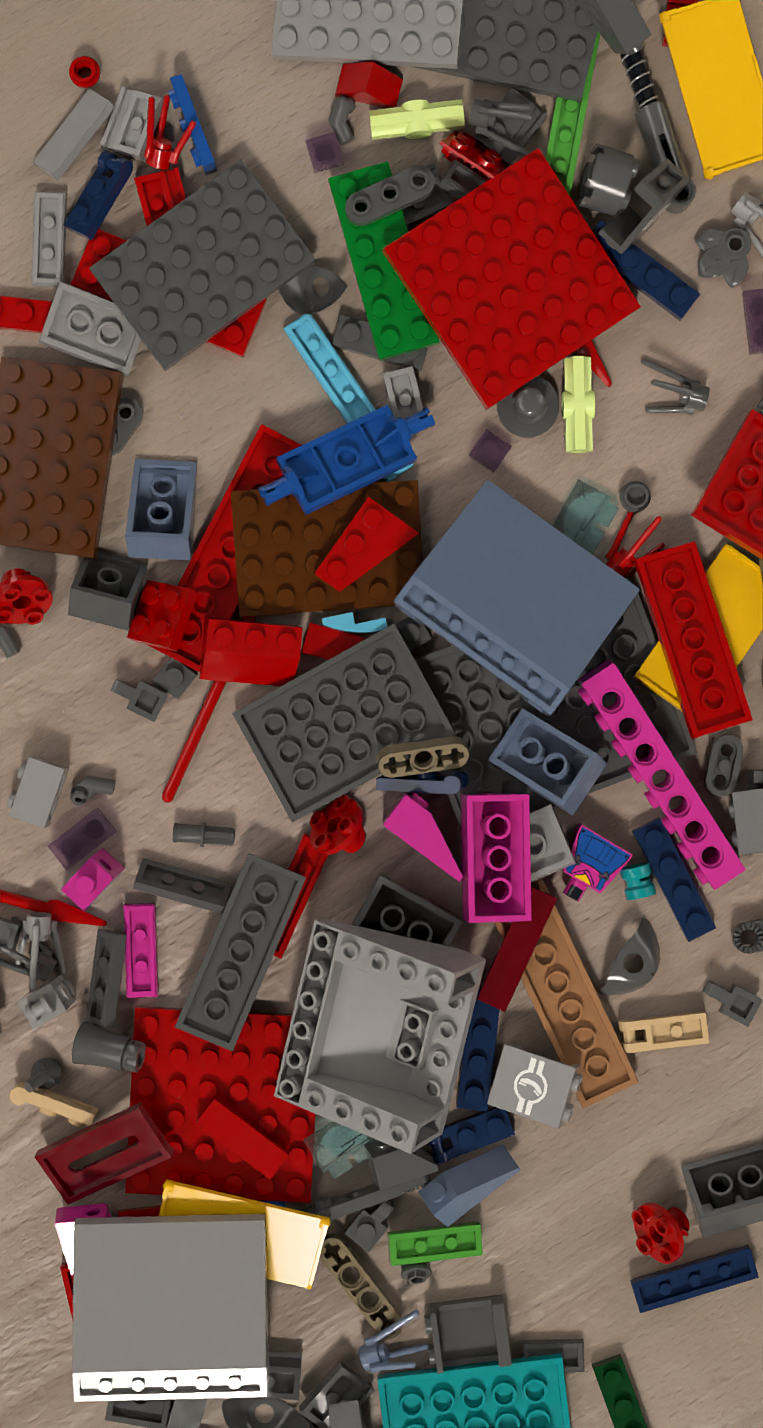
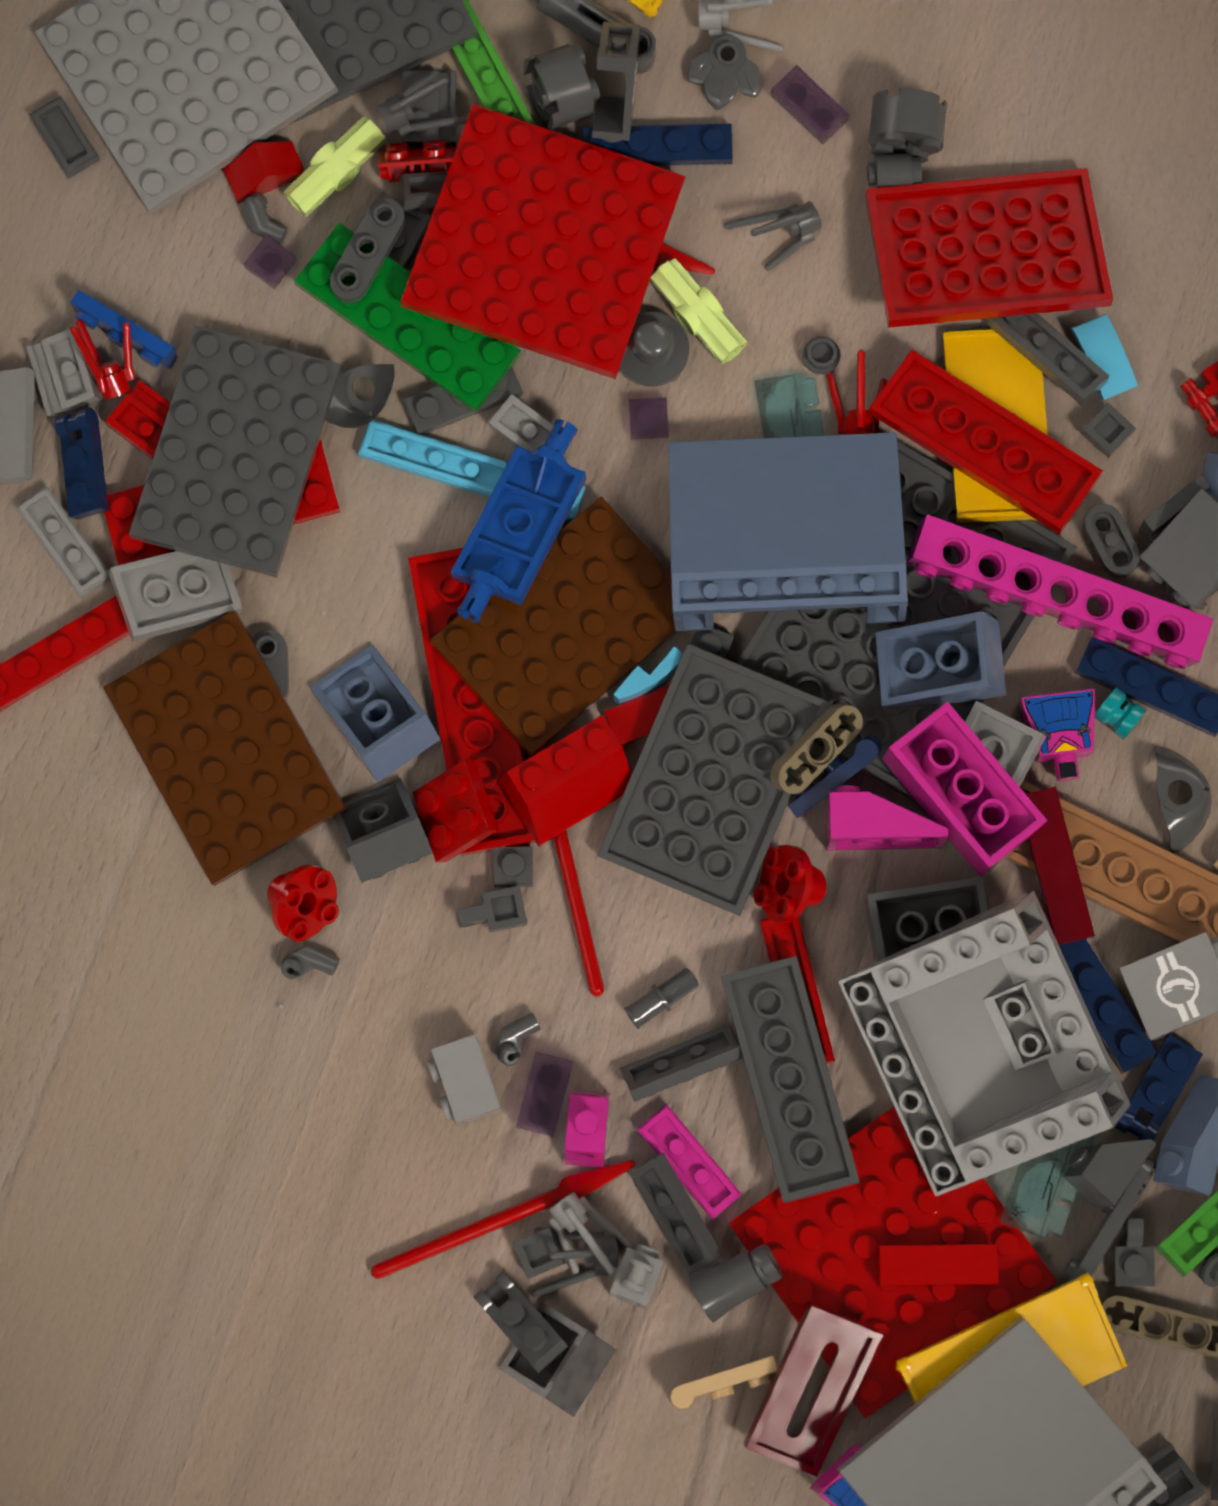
camera: 35 degrees left, 10 degrees down
(44, 1074) = (690, 1361): dark grey plate -> none
(363, 544) = (598, 592): red wing -> none

